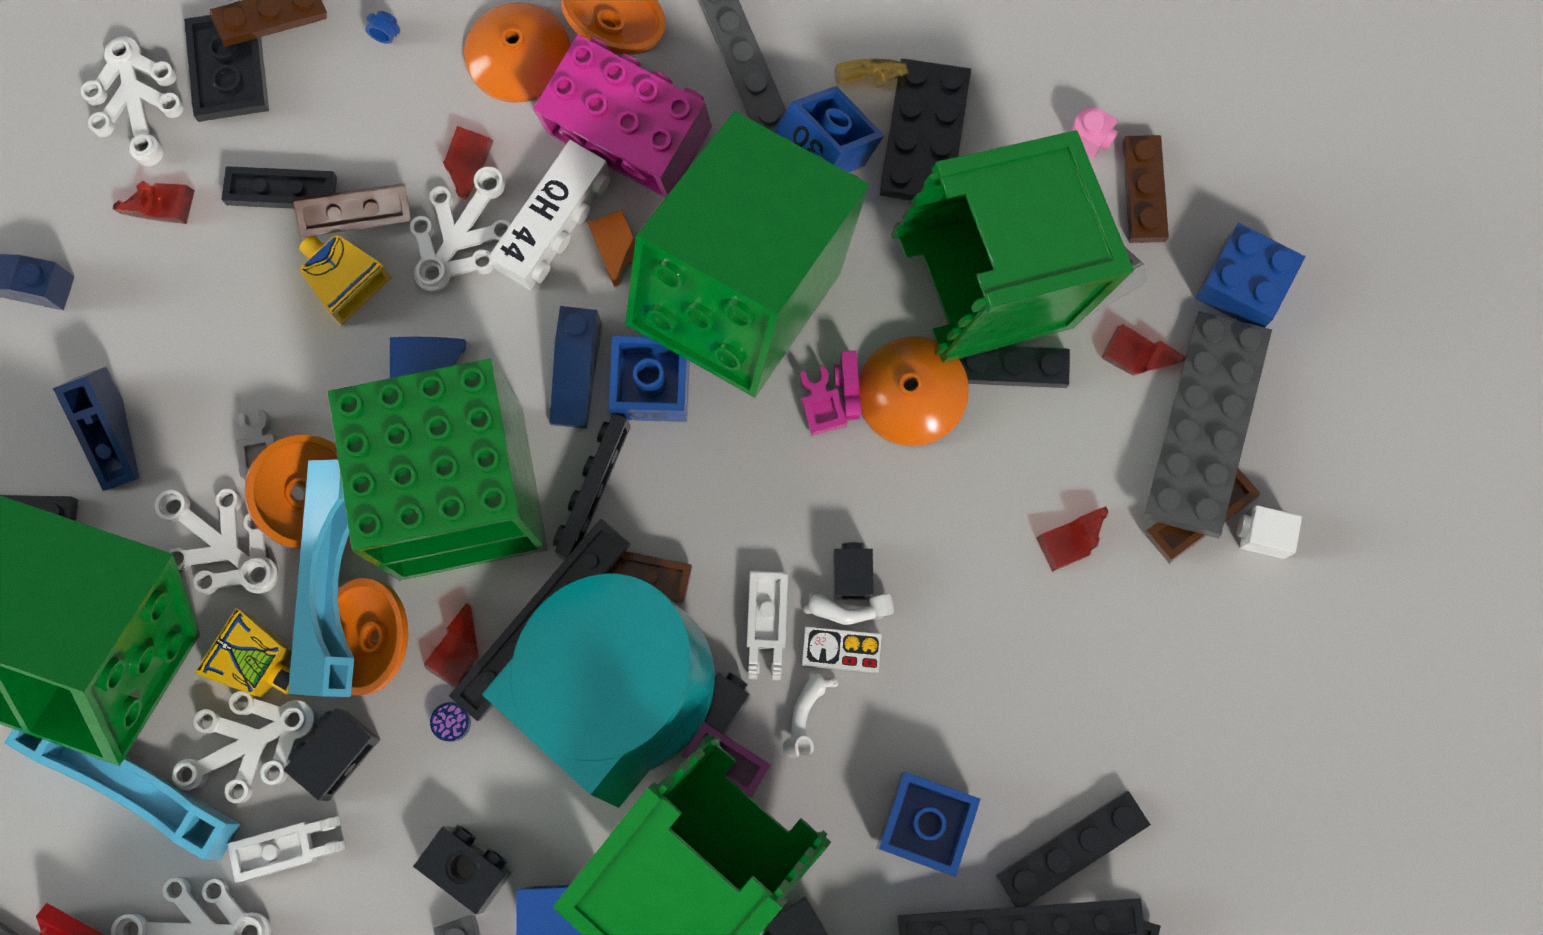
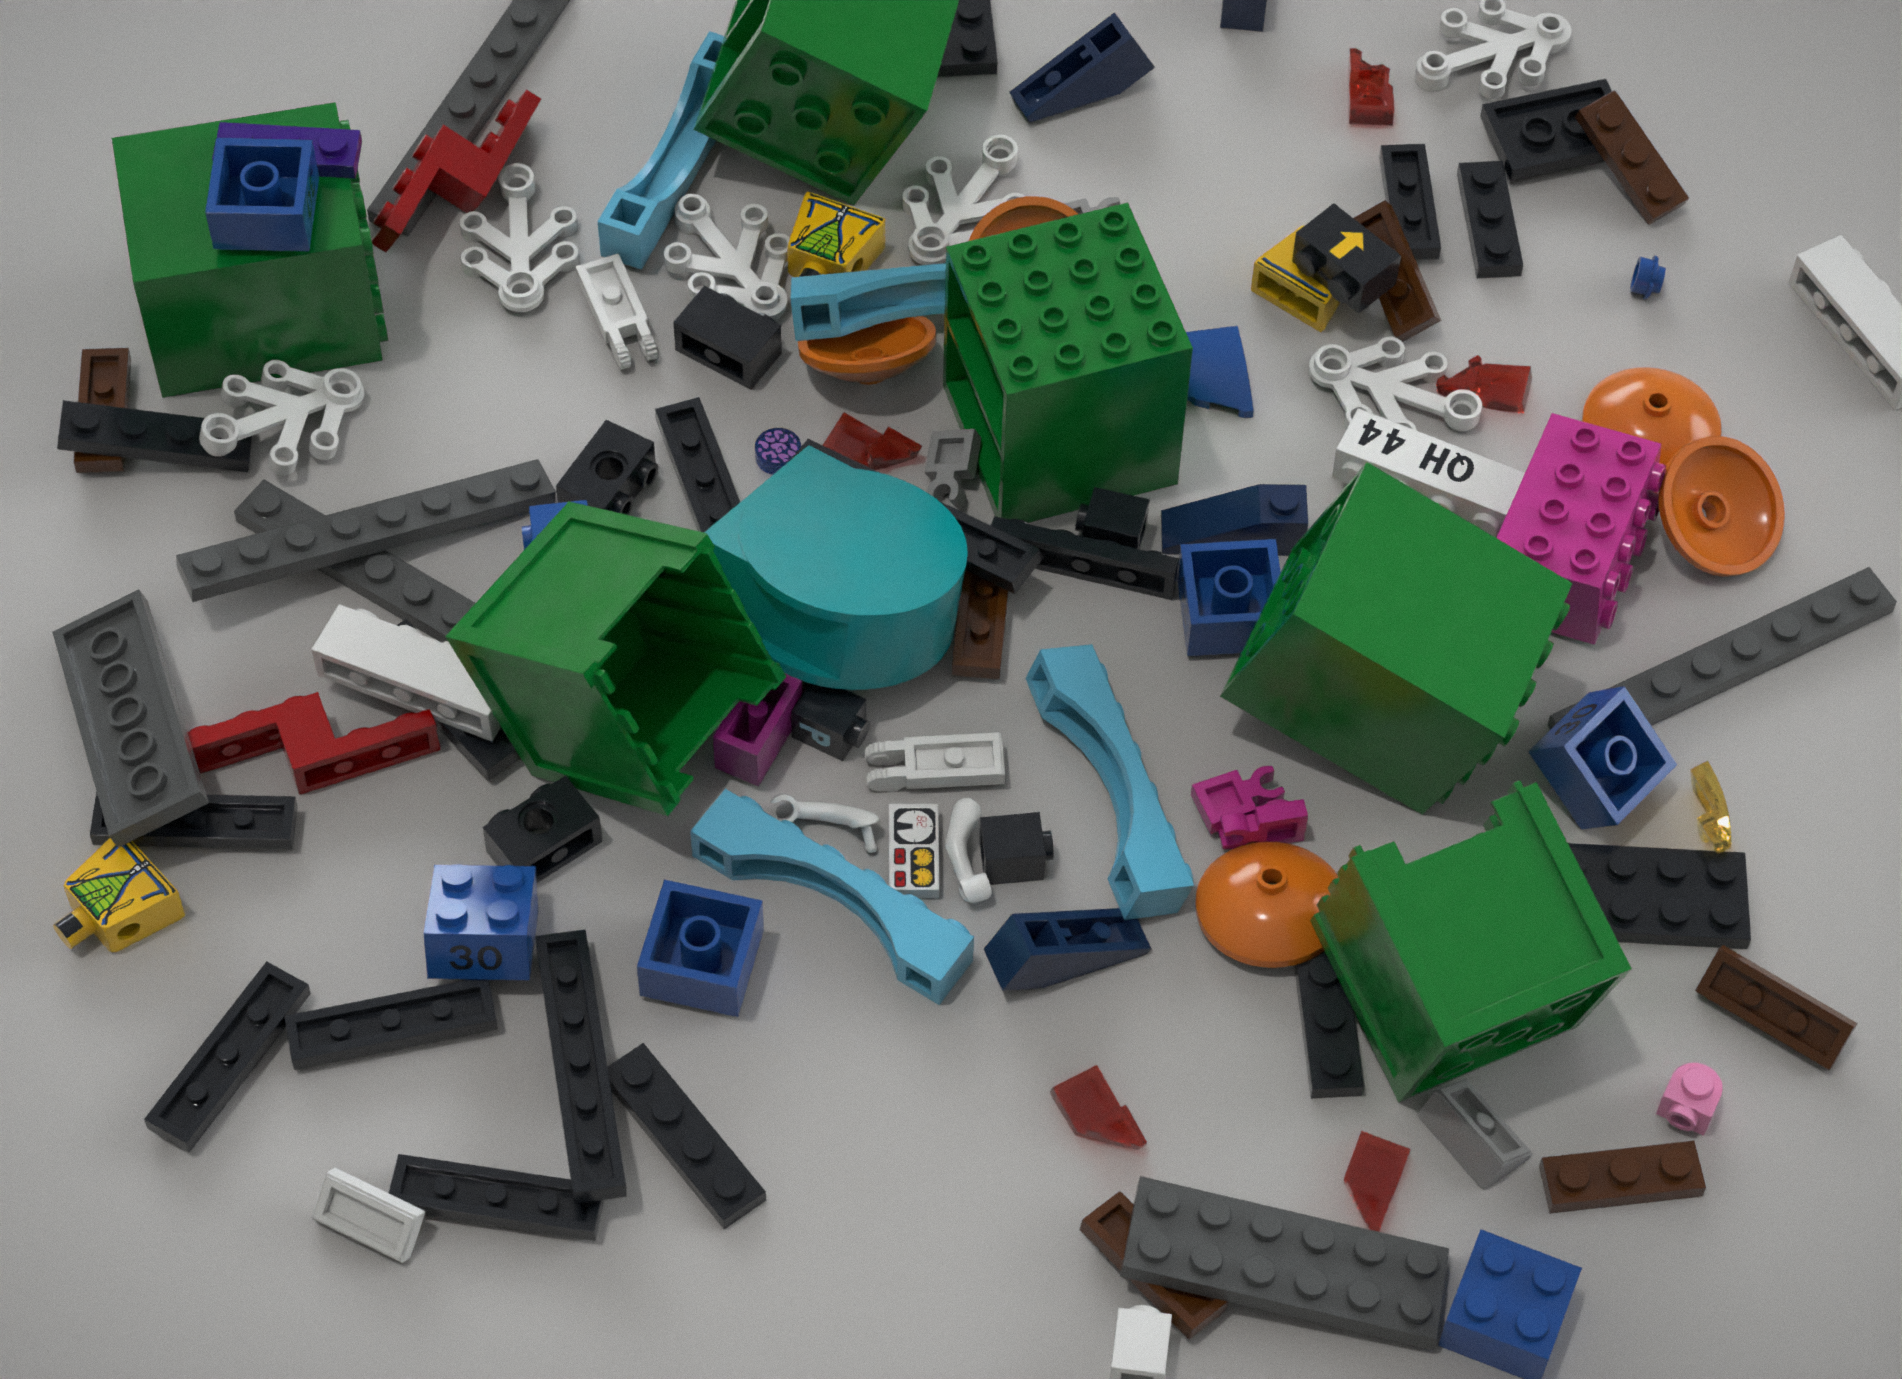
camera: 80 degrees right, 20 degrees down
(303, 132) = (1489, 219): none -> black plate
(348, 240) = (1345, 258): none -> black brick
(474, 786) = (697, 461): none -> black plate
(483, 580) = (949, 461): none -> light grey plate
(564, 460) = (1114, 517): none -> black brick
(876, 475) = (1077, 700): none -> medium azure arch
(932, 654) = (751, 844): none -> medium azure arch
(941, 544) = (1062, 945): none -> dark blue slope
(1027, 62) = (1776, 1007): none -> reddish brown plate

